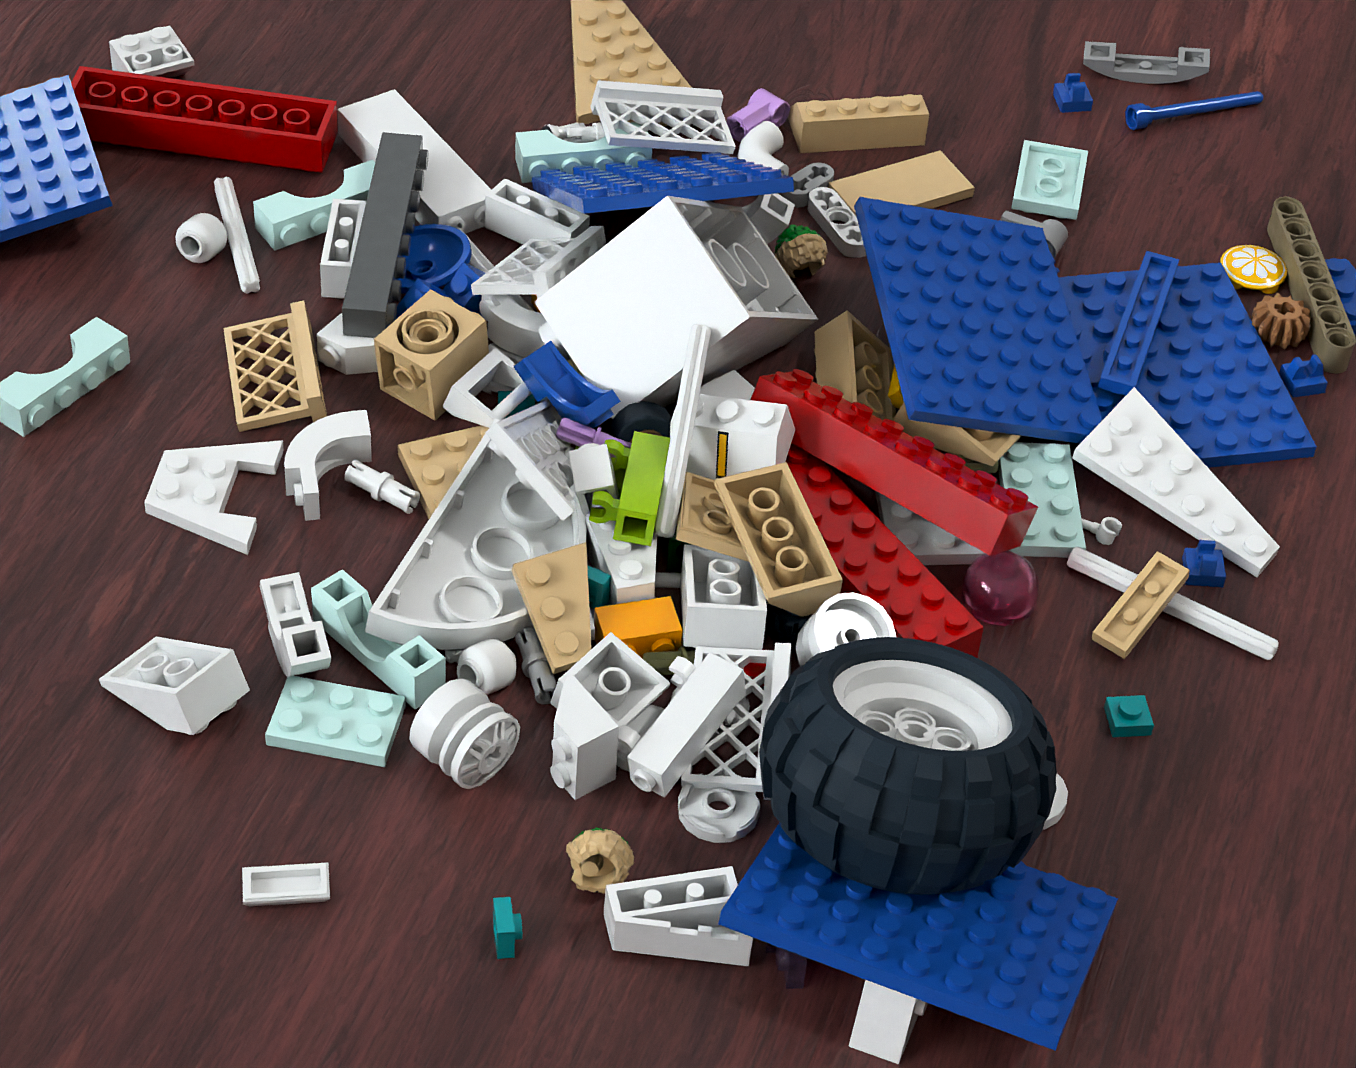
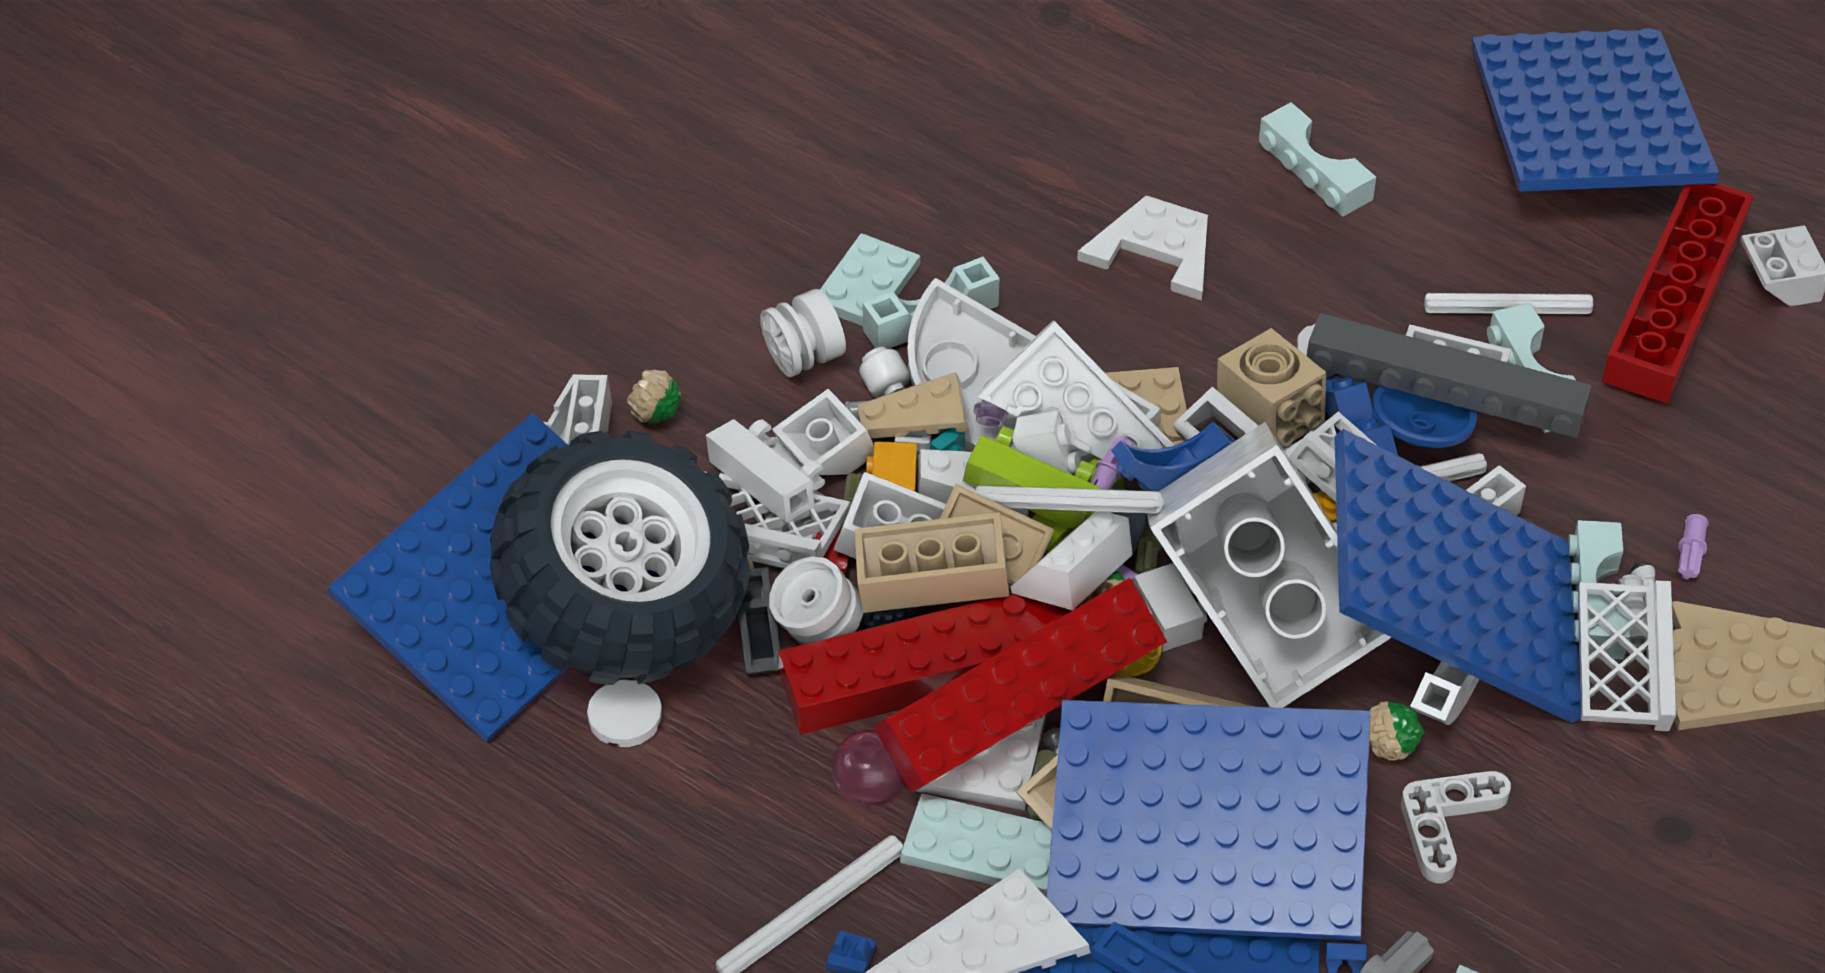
camera: 110 degrees right, 5 degrees up
(178, 683) = (928, 187): white slope -> none
(201, 237) = (1496, 270): white head -> none
(286, 884) = (711, 228): white tile -> none
(295, 638) = (934, 257): white arch -> none
(305, 369) = (1293, 315): tan fence -> none
(321, 447) = (1170, 302): white arch -> none
(382, 486) = (1127, 347): white pin -> none
(451, 189) = (1612, 446): white brick -> none
(506, 927) = (616, 334): teal plate -> none
(509, 108) = (1692, 546): none -> lavender axle
(544, 541) = (989, 414): none -> clear purple plate
(582, 741) = (771, 393): white slope -> none
(760, 108) = (1659, 771): lavender piece -> none
(761, 144) = (1572, 739): white cylinder -> none
(806, 180) = (1529, 783): light grey beam -> none
(859, 123) = (1636, 859): tan slope -> none
(919, 182) = (1508, 873): tan tile -> none
(1106, 531) = (930, 882): white hand -> none
(1128, 716) = (685, 822): teal plate -> none
(1140, 605) = (802, 862): tan plate -> none

